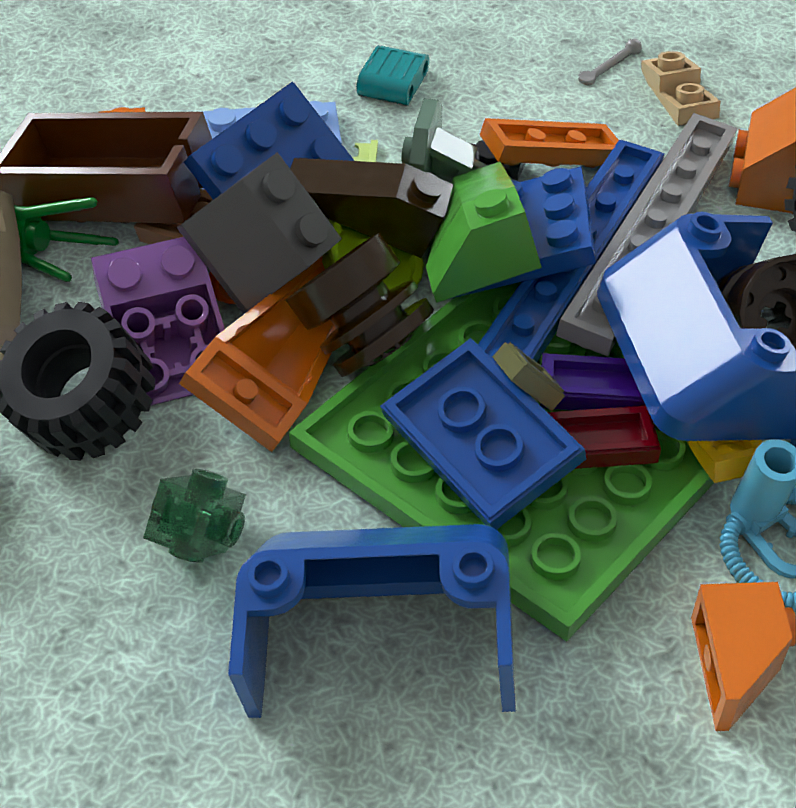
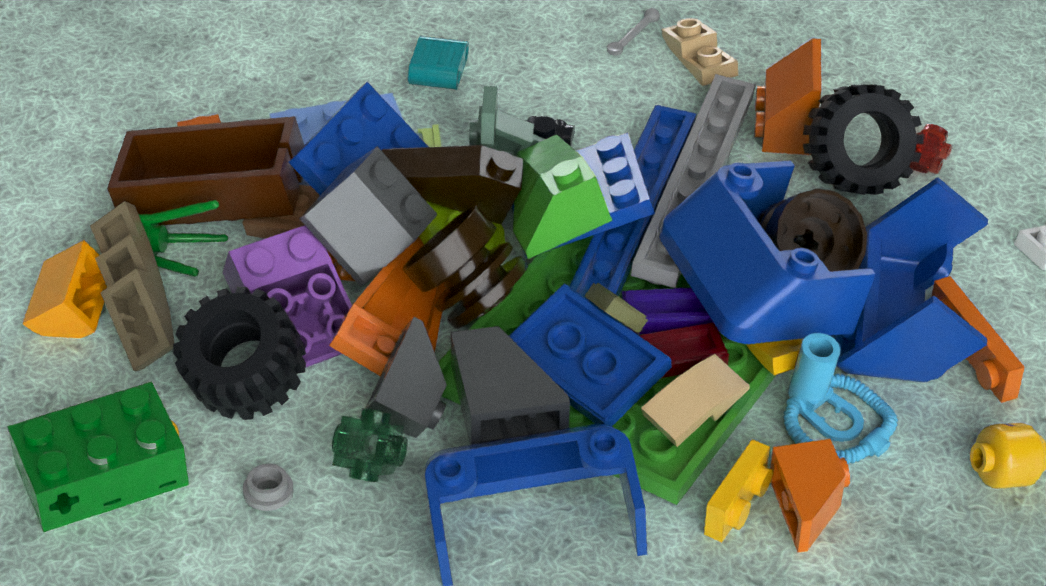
camera: 10 degrees left, 5 degrees down
(63, 540) = (266, 477): none -> light grey plate
(262, 444) = (411, 382): none -> dark grey slope
(372, 464) = (503, 388): none -> dark grey slope
(548, 142) = (594, 113): orange plate -> none
(607, 504) = (694, 397): none -> tan slope
(634, 654) = (732, 499): none -> yellow plate

